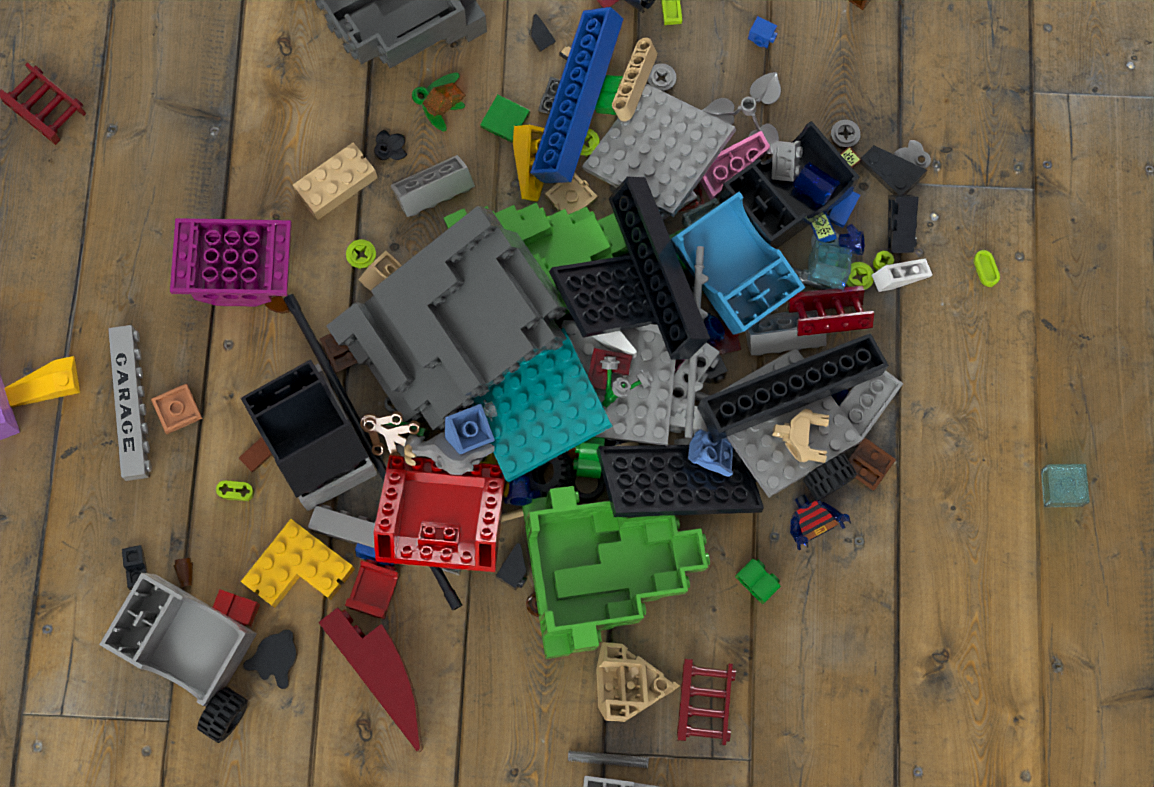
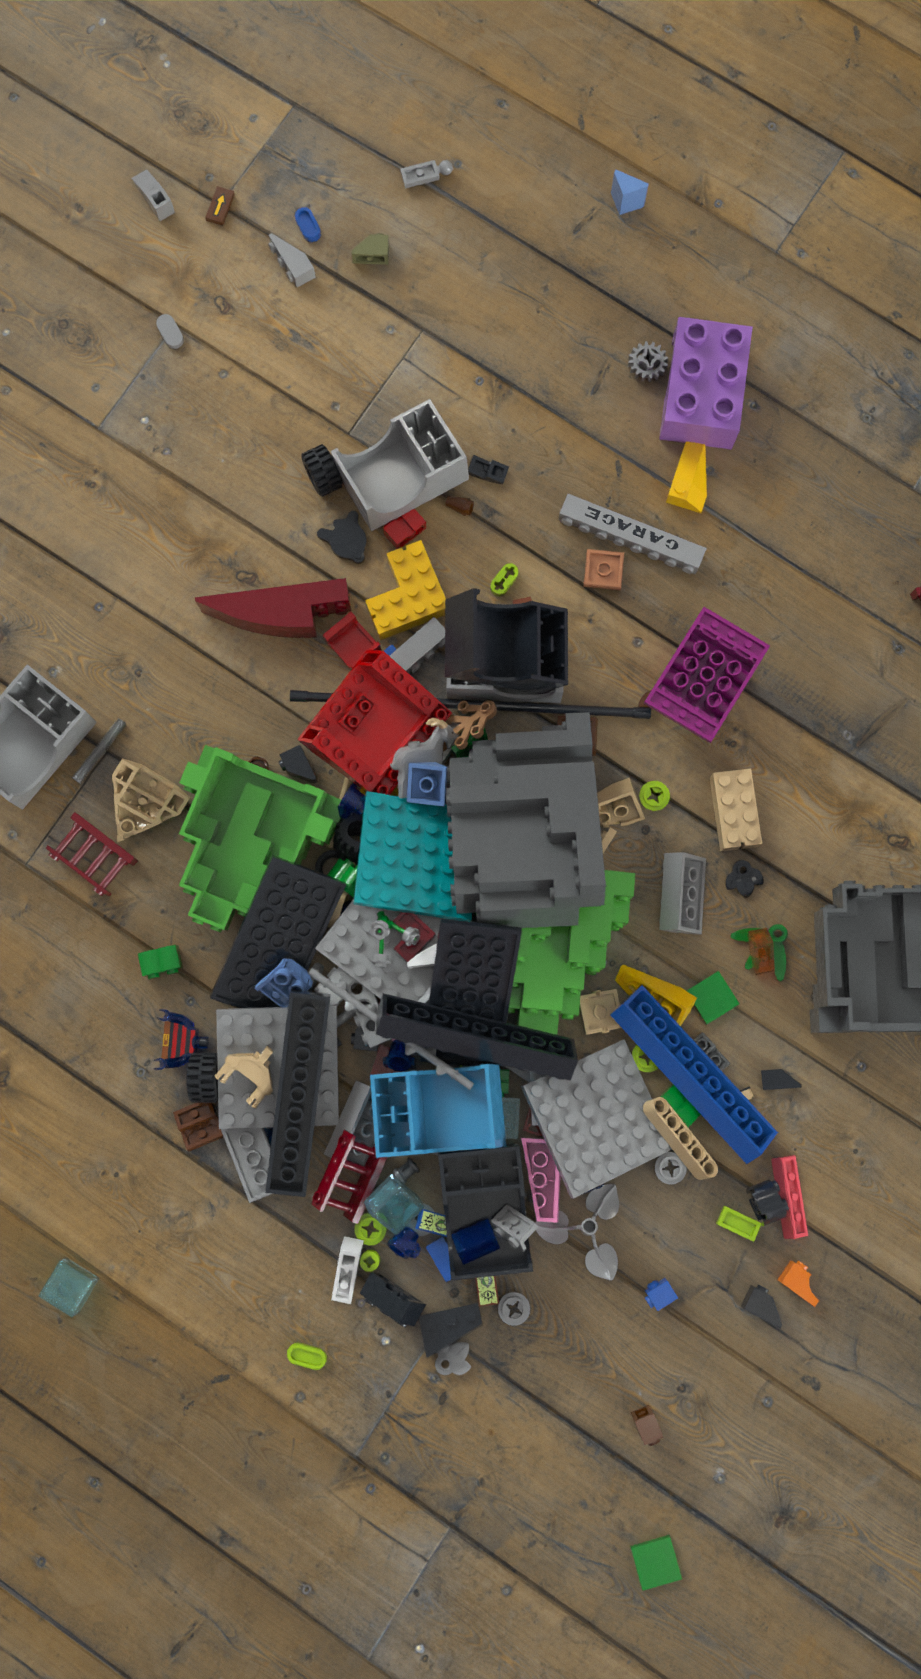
camera: 125 degrees right, 5 degrees up
(489, 410) = (436, 812): clear plate -> none

